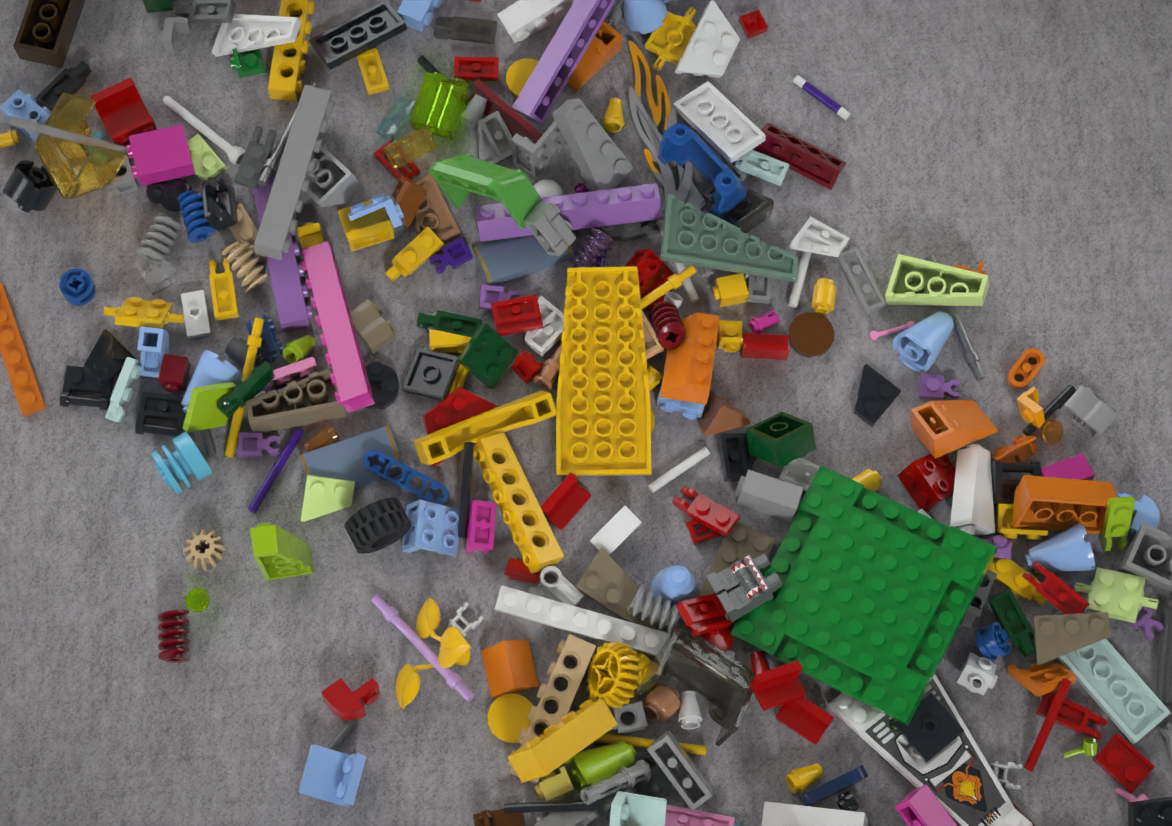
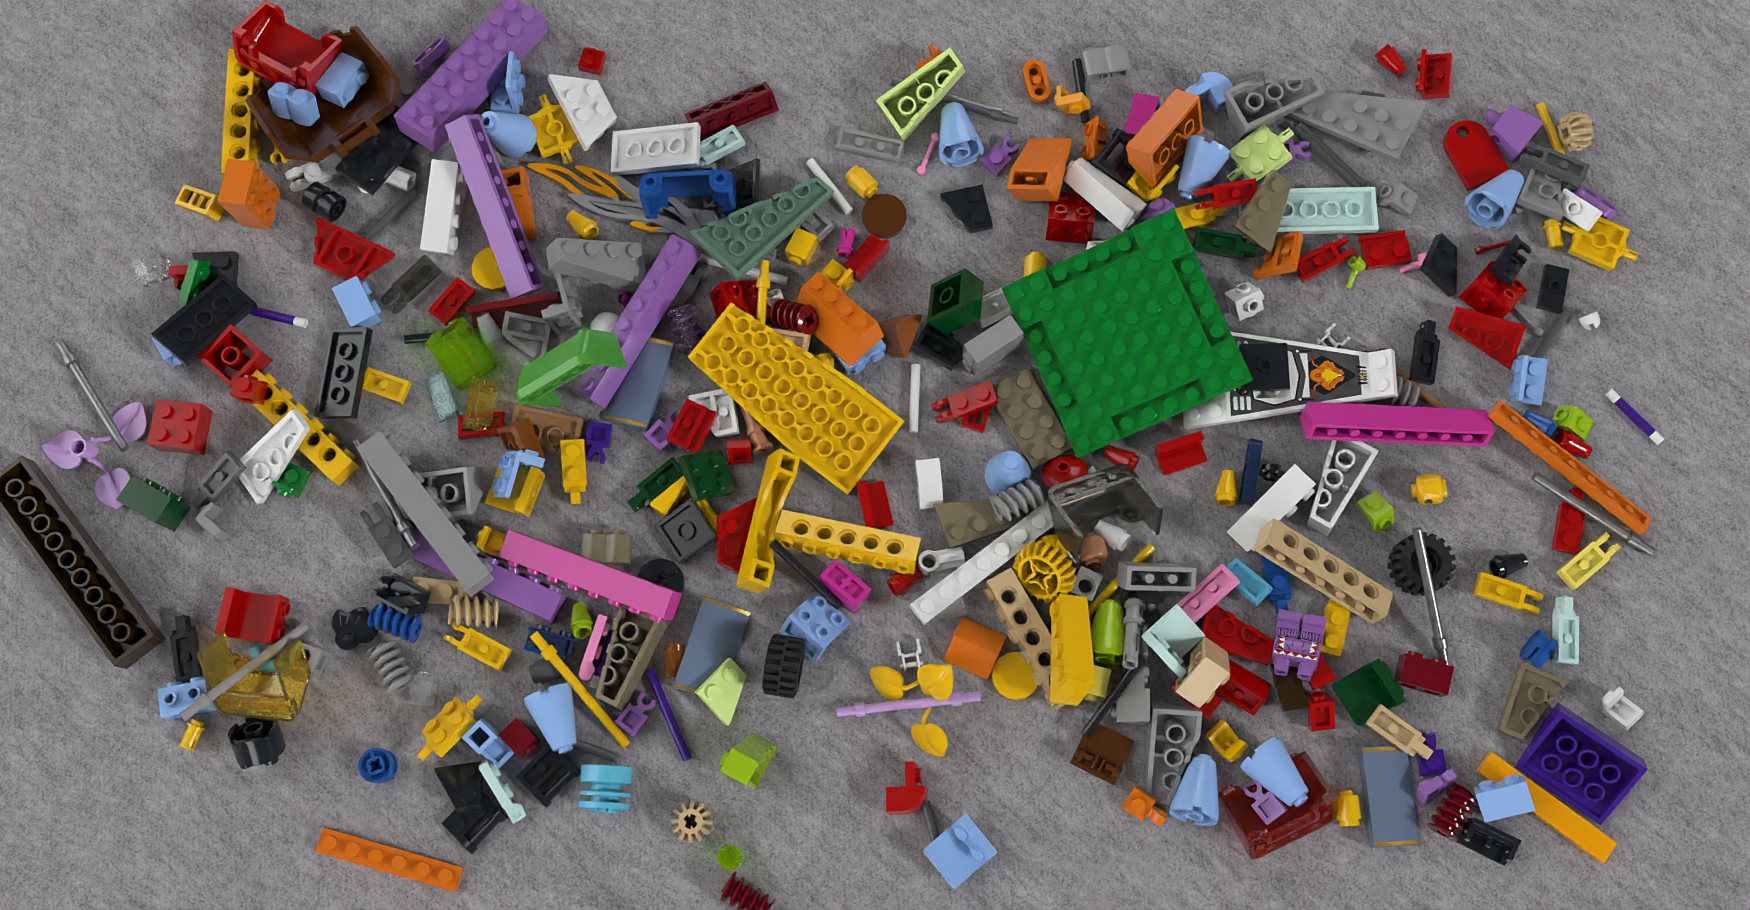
camera: 45 degrees left, 5 degrees up
(160, 155) = (318, 612): dark pink brick -> none
(196, 314) = (481, 683): white plate -> none
(203, 409) = (576, 730): lime tile -> none
(205, 161) = (343, 585): yellowish green wing -> none
(233, 152) = (368, 549): white piece -> none
(246, 390) = (586, 691): dark green hinge -> none
(407, 474) = (758, 616): blue beam -> none
(550, 228) = (643, 345): light grey brick -> none
(703, 614) = (1050, 466): red plate -> none
(743, 586) = (1051, 419): dark grey hips -> none
(778, 686) = (1149, 453): red panel -> none
(819, 239) = (813, 149): white wing -> none
(824, 99) = (695, 58): dark purple bar -> none
(992, 641) = (1228, 270): blue wheel -> none
(1047, 724) = (1320, 280): red bar -> none
(1051, 431) = (1099, 101): clear orange tile -> none
(1117, 521) = (1209, 109): lime hinge -> none

